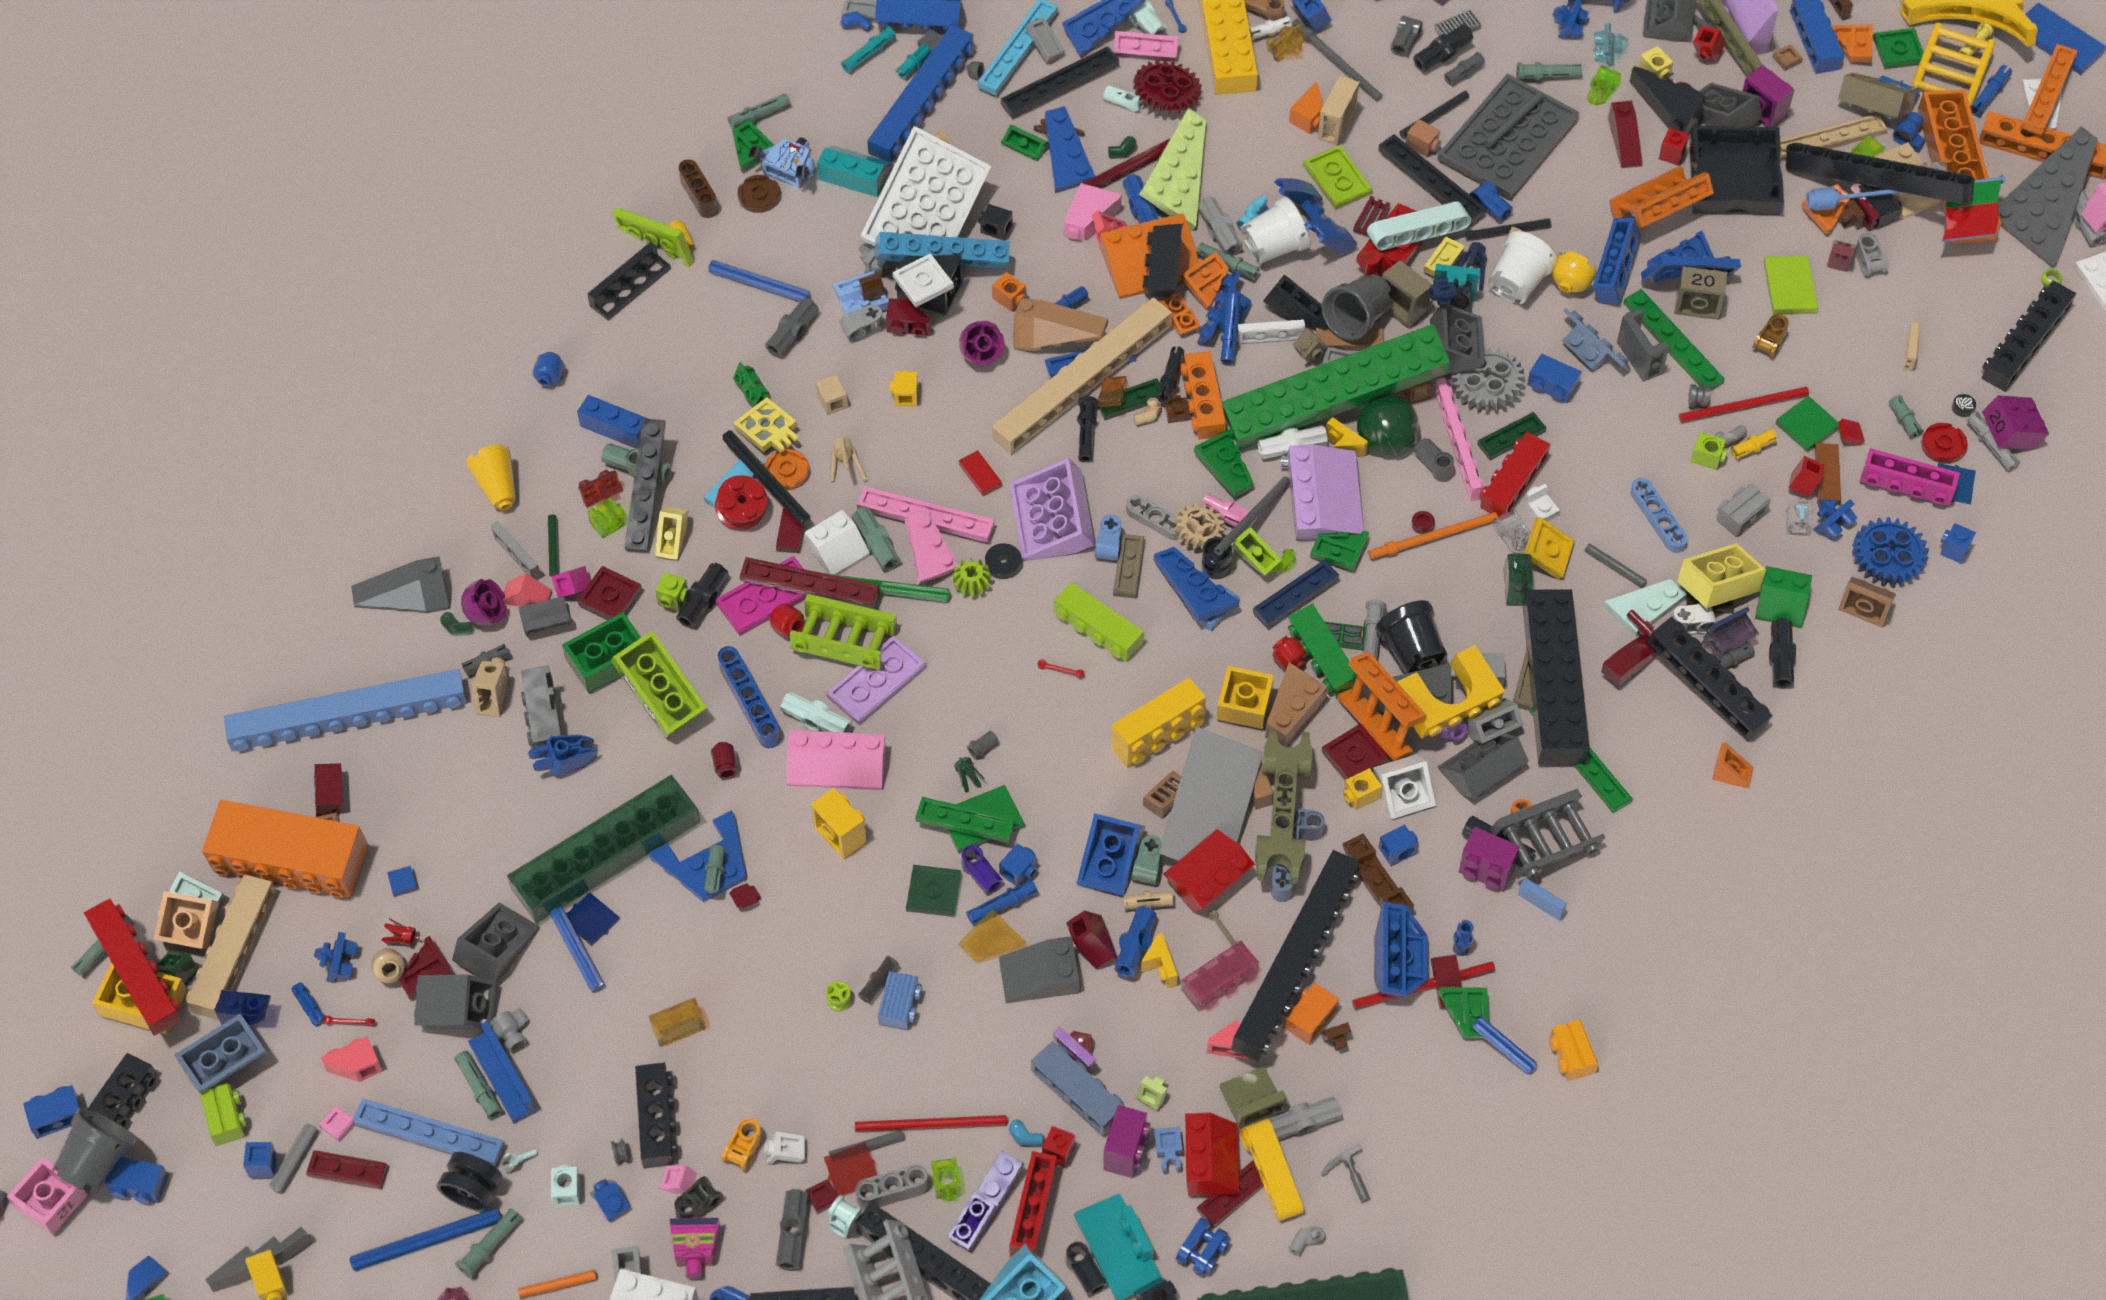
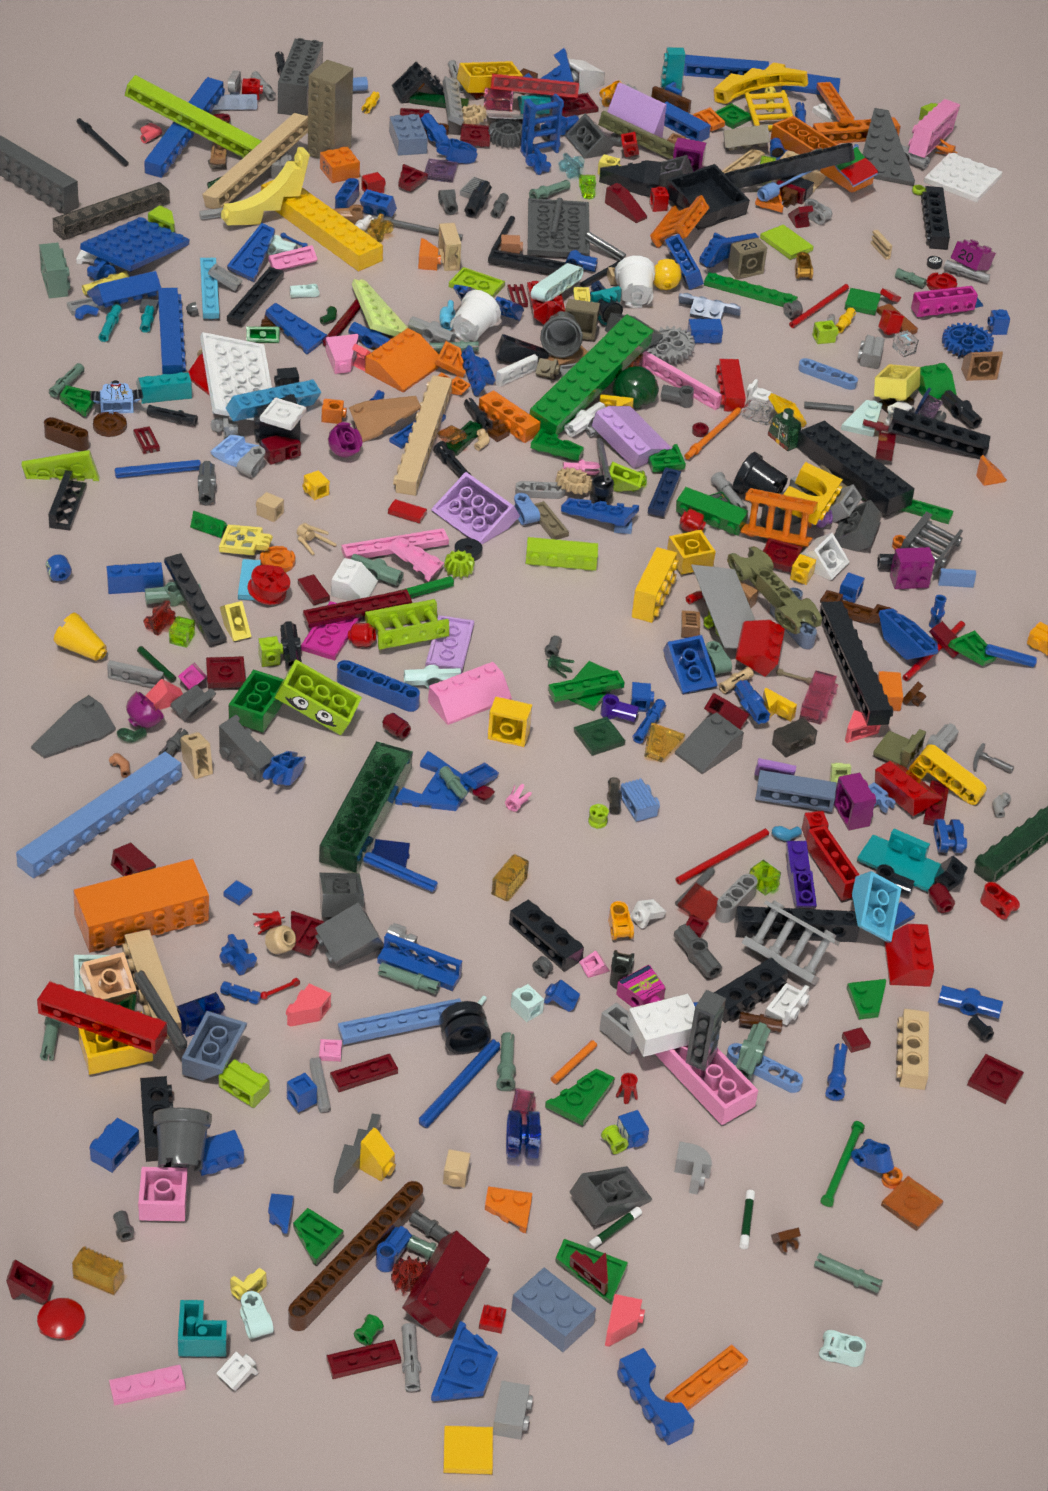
camera: 40 degrees left, 15 degrees down
(201, 986) = (160, 1009): none -> dark grey axle
(419, 657) = (124, 764): none -> nougat arm
(756, 873) = (479, 775): none -> blue tile
(766, 478) = (255, 561): black axle -> none
(767, 924) = (513, 802): none -> bright pink piece
(776, 247) = (148, 447): none -> dark red tile
(836, 218) = (178, 416): none -> black pin
(843, 1216) = (727, 925): light aqua piece -> none
(871, 286) = (241, 439): reddish brown tile -> none
(1042, 664) = (546, 592): red hinge -> none
(1143, 1014) = (794, 737): none -> clear smoke brick
(1162, 260) = (422, 352): black slope -> none
(1167, 86) = (328, 274): dark red gear -> none
(1229, 335) = (496, 380): blue pin -> none
(1295, 704) = (723, 540): medium nougat wedge -> none
(1442, 291) = (609, 303): dark blue gear -> none
(1505, 438) = (707, 368): dark green tile -> none
(1539, 190) = (605, 246): none -> dark grey axle
(1644, 357) = (741, 293): dark grey panel -> none
(1829, 525) = (924, 336): blue hips -> none

